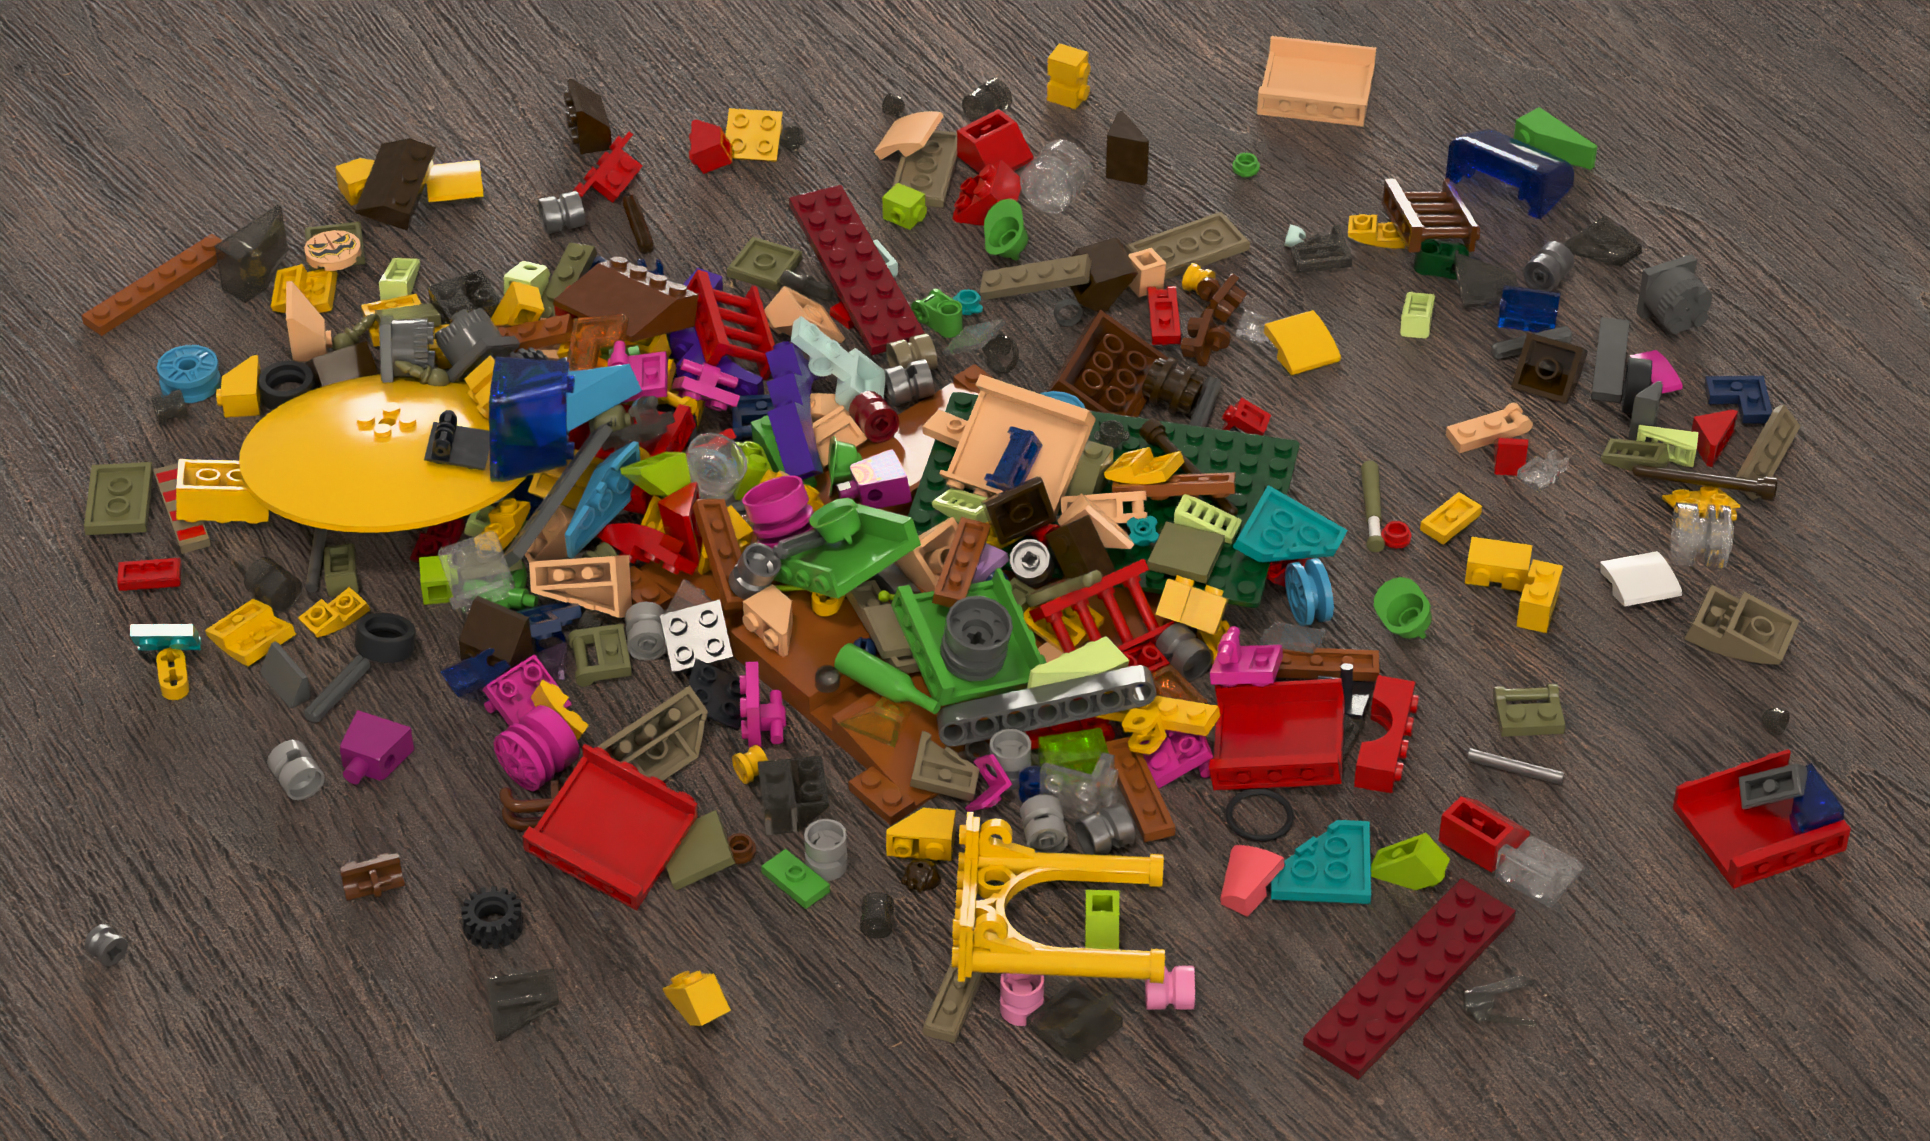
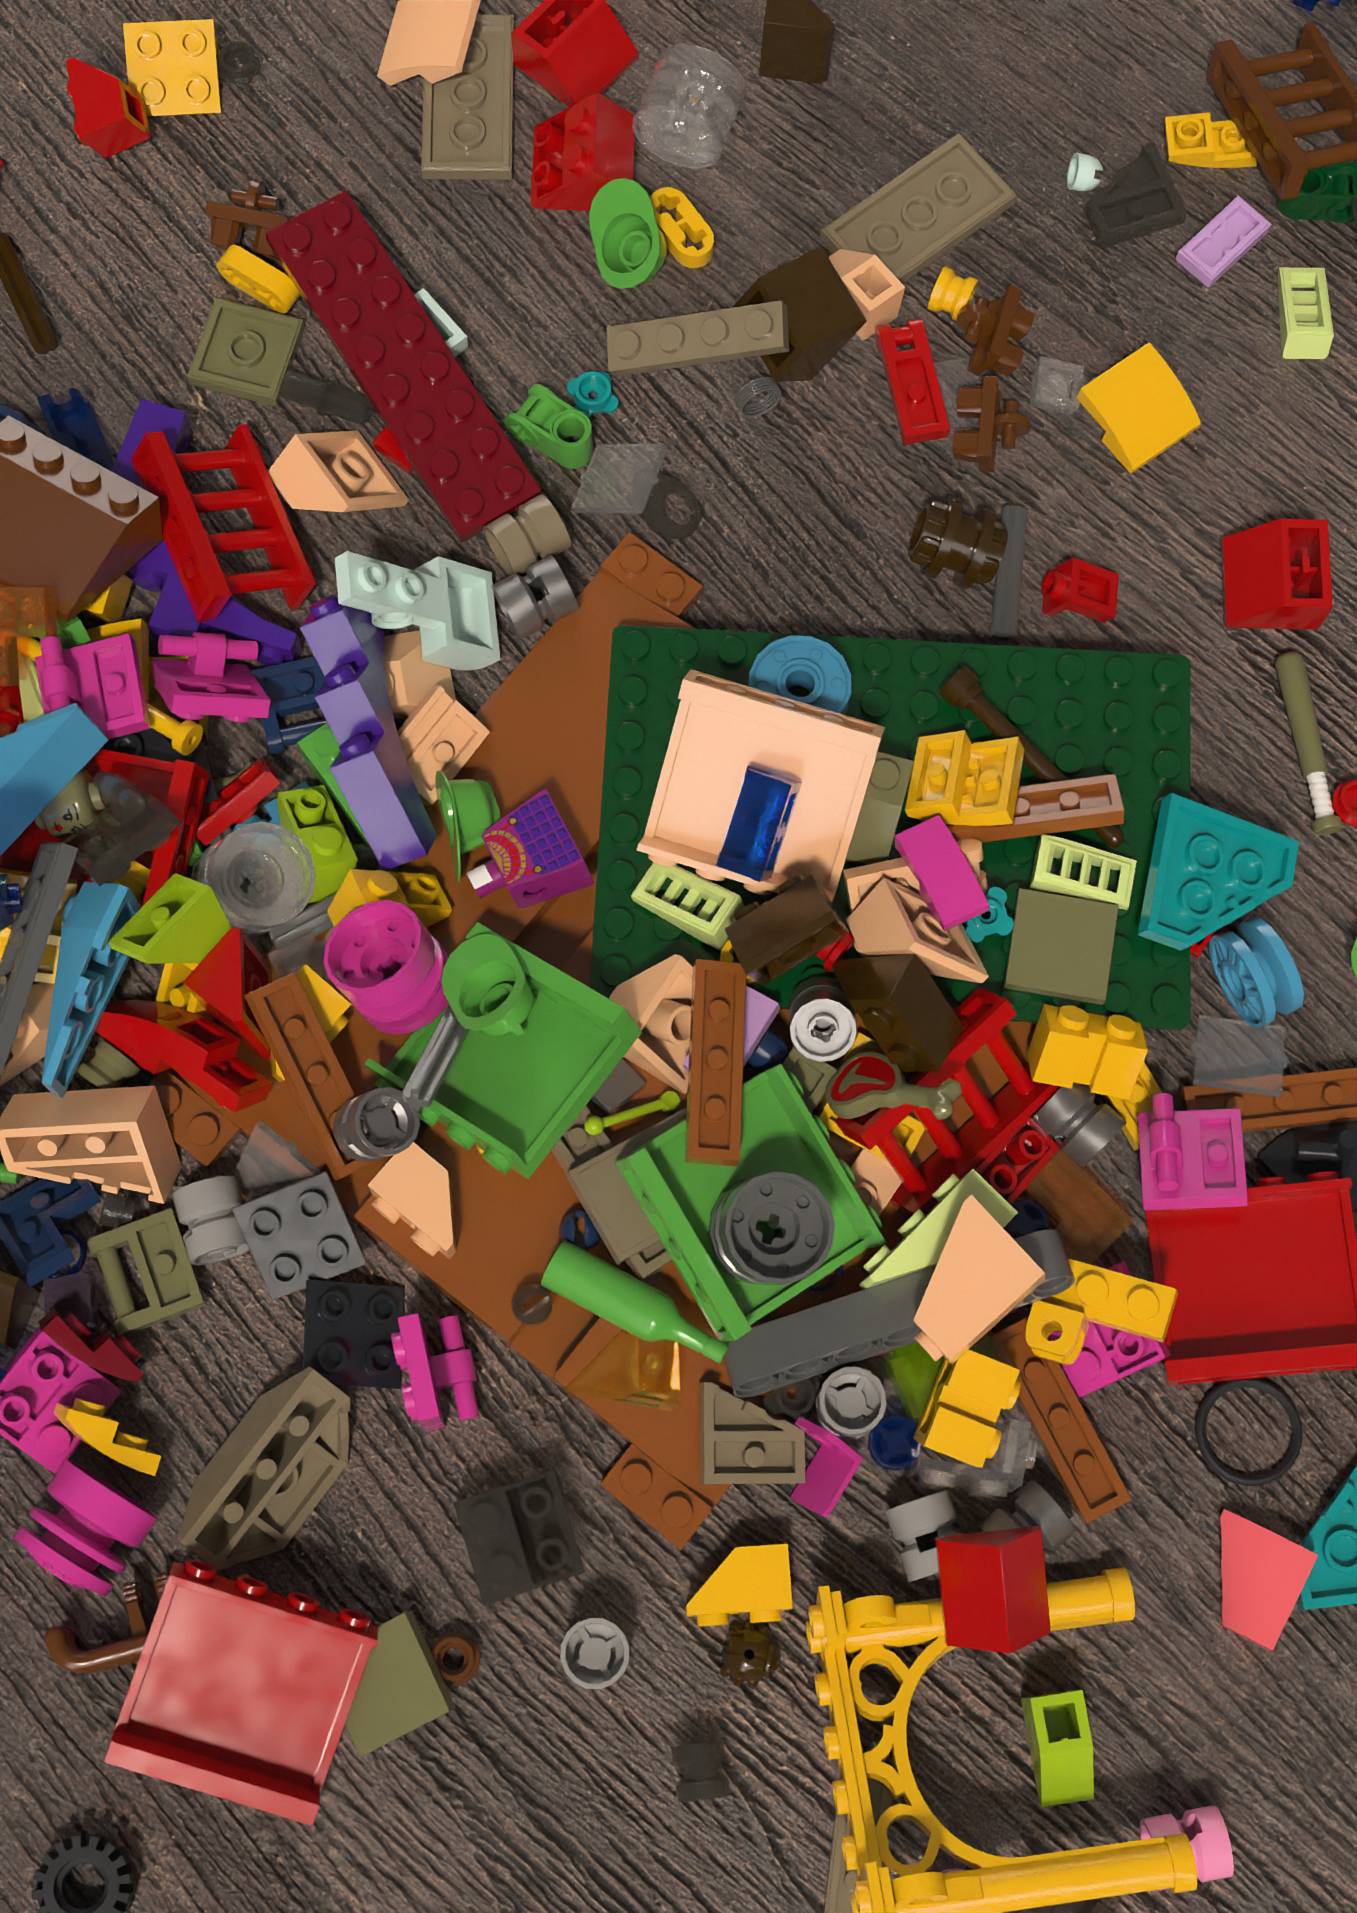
camera: 15 degrees left, 30 degrees up
(568, 678) = (104, 1353): none -> dark red slope
(747, 764) = (438, 1478): yellow wheel -> none
(776, 202) = (230, 220): none -> reddish brown hips
(779, 229) = (258, 279): none -> yellow beam
(795, 878) = (554, 1702): bright green plate -> none
(874, 416) = (492, 688): dark red wheel -> none
(904, 206) = (451, 197): lime brick -> none
(945, 428) = (631, 727): light nougat plate -> none
(1041, 236) = (688, 222): none -> yellow beam
(1076, 836) = (993, 1589): none -> red slope
(1082, 745) = (966, 1407): none -> yellow brick
(1091, 673) = (973, 1284): none -> light nougat slope
(1107, 368) = (843, 529): reddish brown slope -> none
(1111, 434) = (894, 688): clear smoke plate -> none
(1117, 496) = (942, 873): none -> dark pink slope
(1246, 165) = (982, 14): bright green plate -> none
(1369, 423) = (1277, 575): none -> red slope
(1373, 275) = (1223, 241): none -> lavender plate

